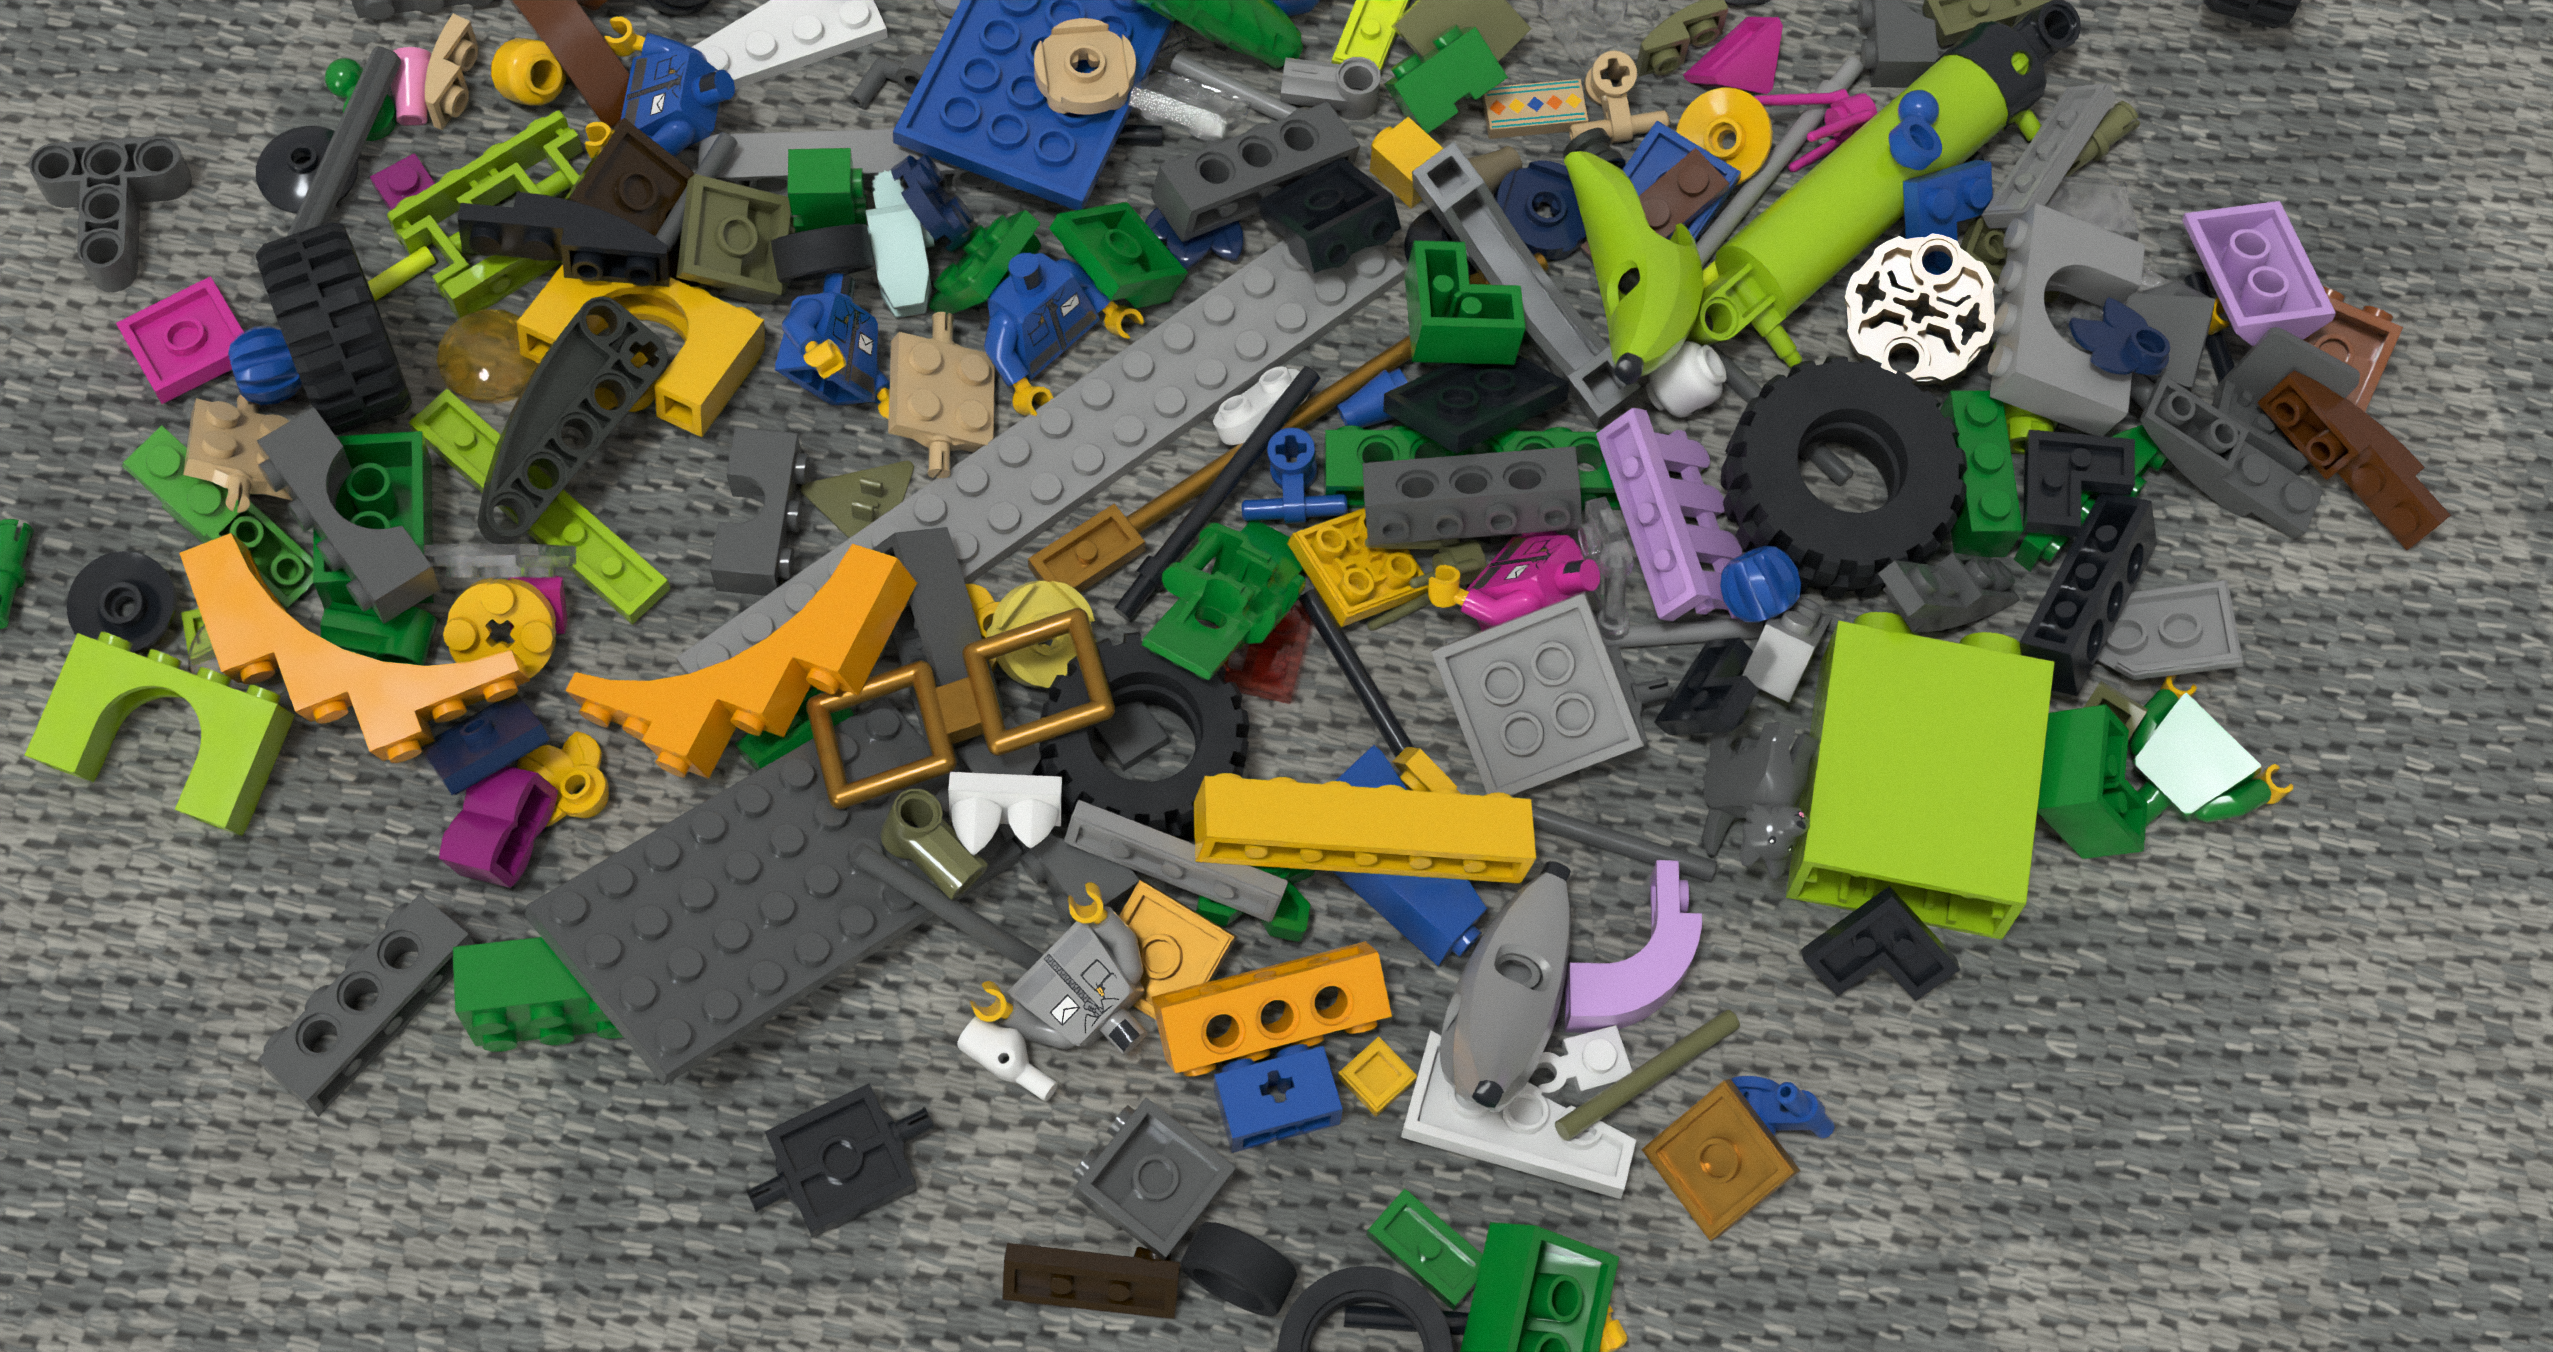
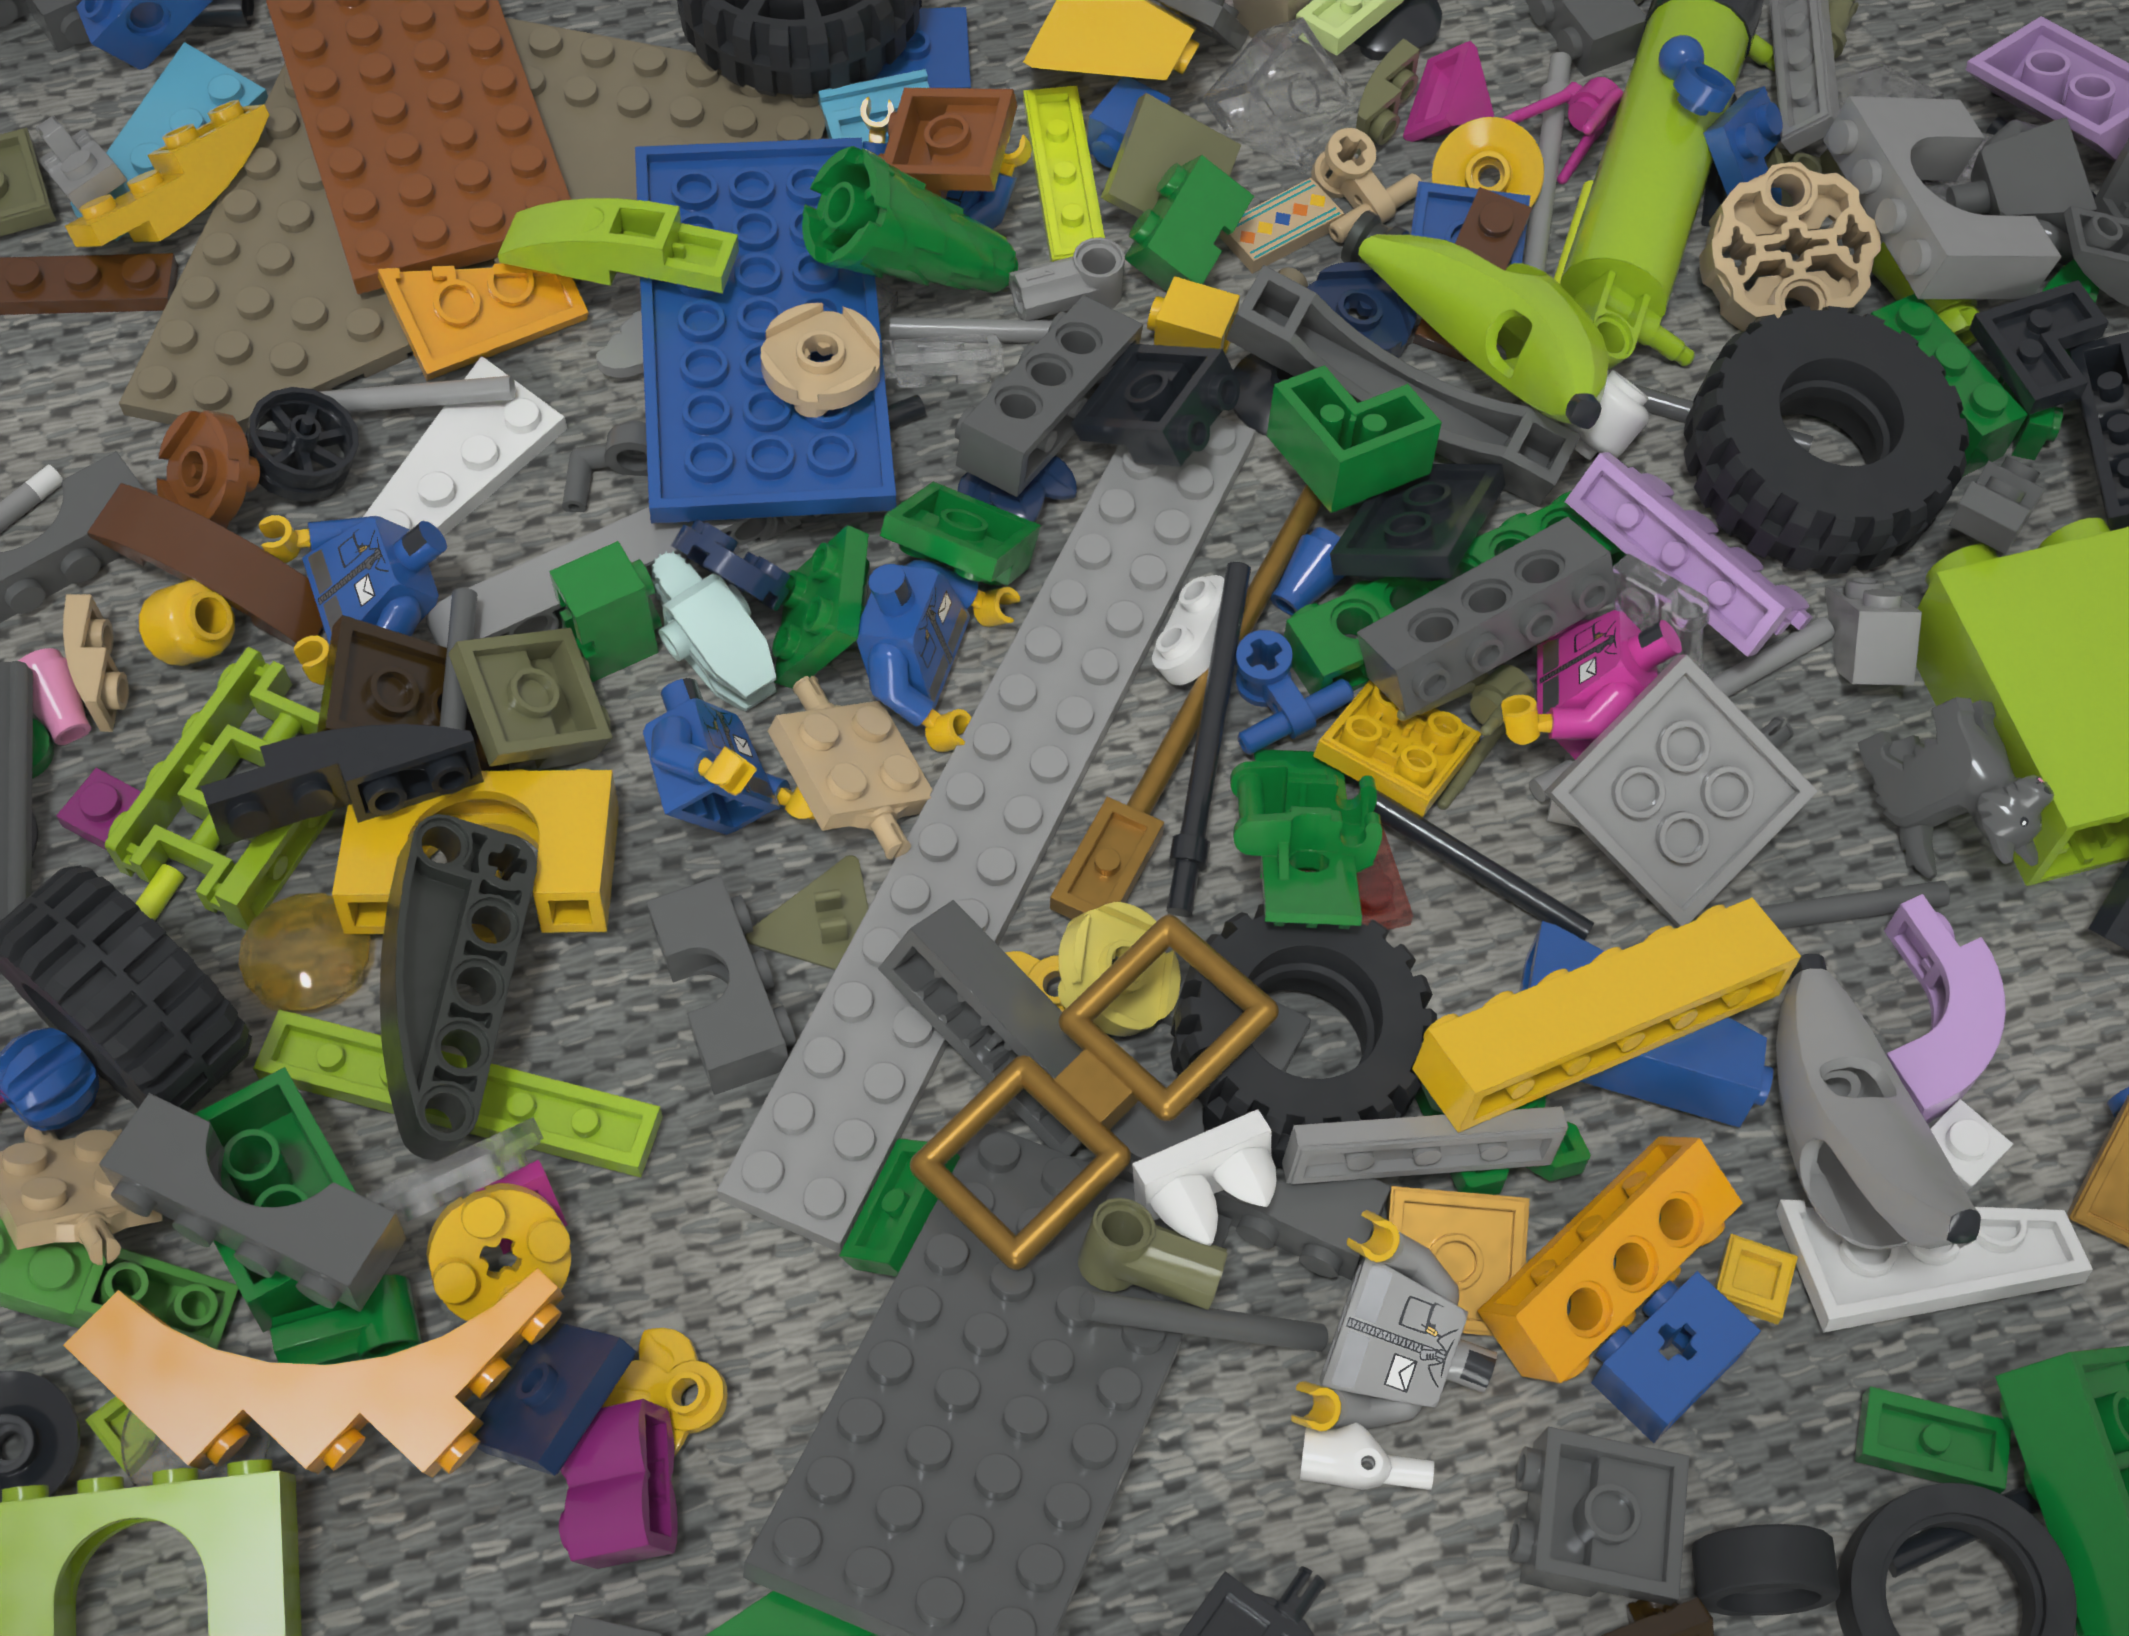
camera: 25 degrees left, 5 degrees down
(760, 689) = (852, 1178): light orange arch -> none
(822, 252) = (642, 669): black tyre -> none
(1421, 772) = (1608, 925): yellow plate -> none
(1647, 1075) = (2027, 1138): olive bar -> none
(1712, 692) = (1831, 715): black plate -> none
(1760, 584) = (1824, 575): blue piece -> none
(2122, 341) = (2013, 191): dark blue plate -> none

